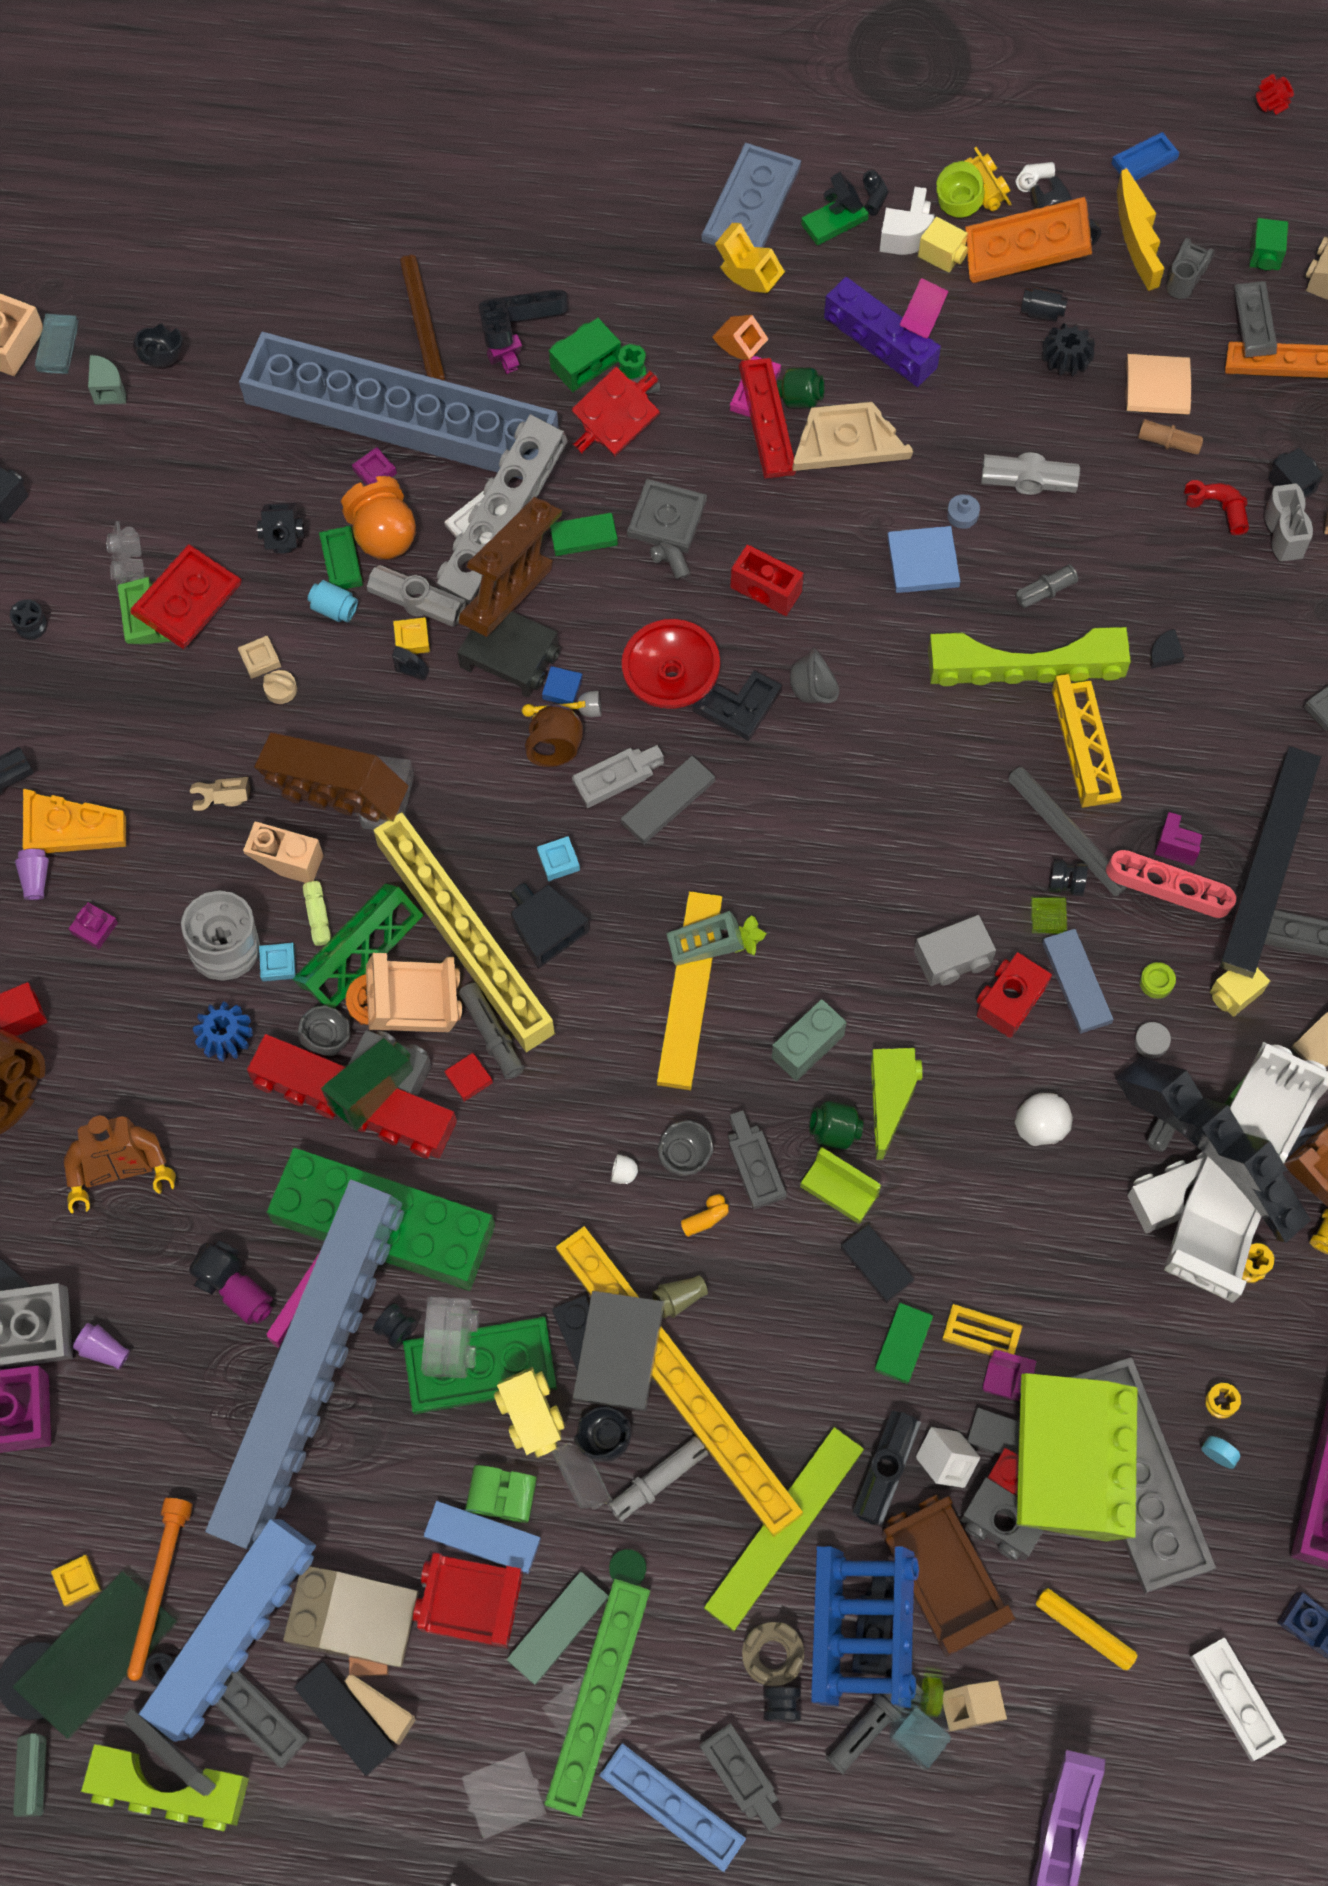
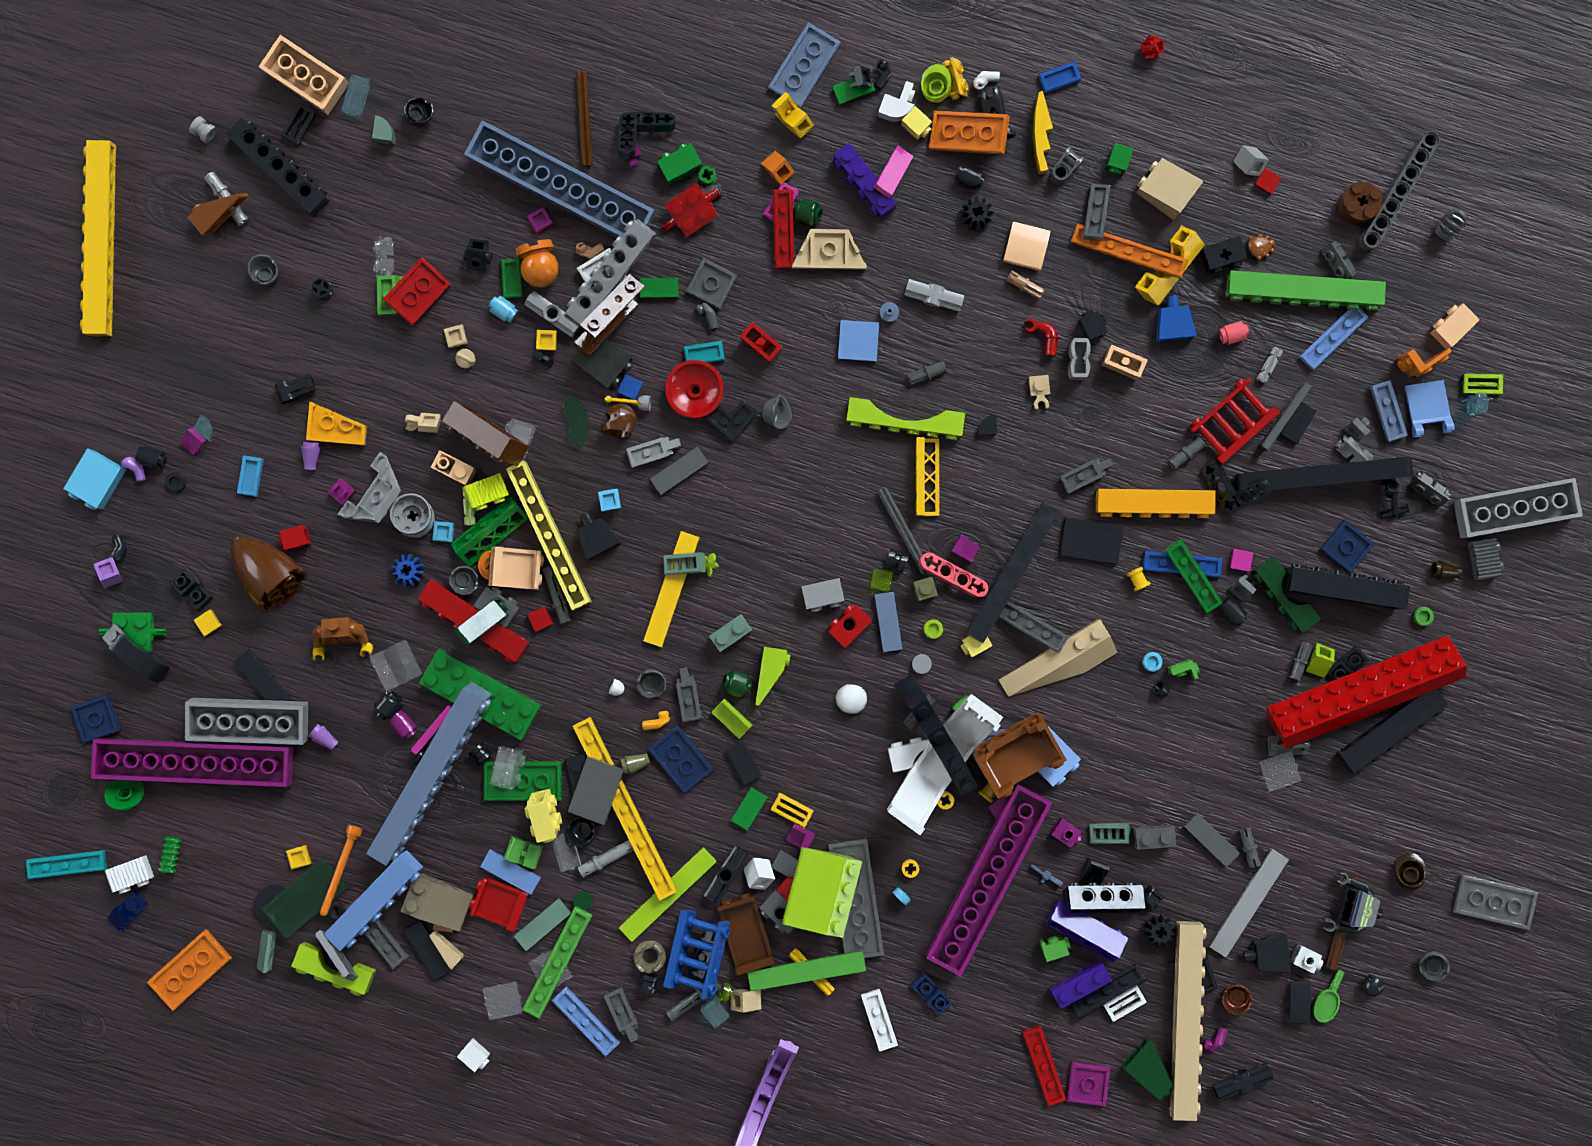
camera: 10 degrees right, 20 degrees up
(154, 916) = (378, 496): none -> light grey wing
(220, 1199) = (395, 665): none -> clear slope
(342, 879) = (485, 491): none -> neon yellow brick
(454, 500) = (589, 252): none -> medium nougat arm
(483, 751) = (578, 421): none -> clear green tile
(688, 608) = (705, 352): none -> teal tile
(761, 1276) = (680, 759): none -> dark blue tile
(1078, 1623) = (807, 970): none -> bright green tile
(1128, 912) = (925, 588): none -> olive brick
(1235, 582) = (1039, 387): none -> tan plate

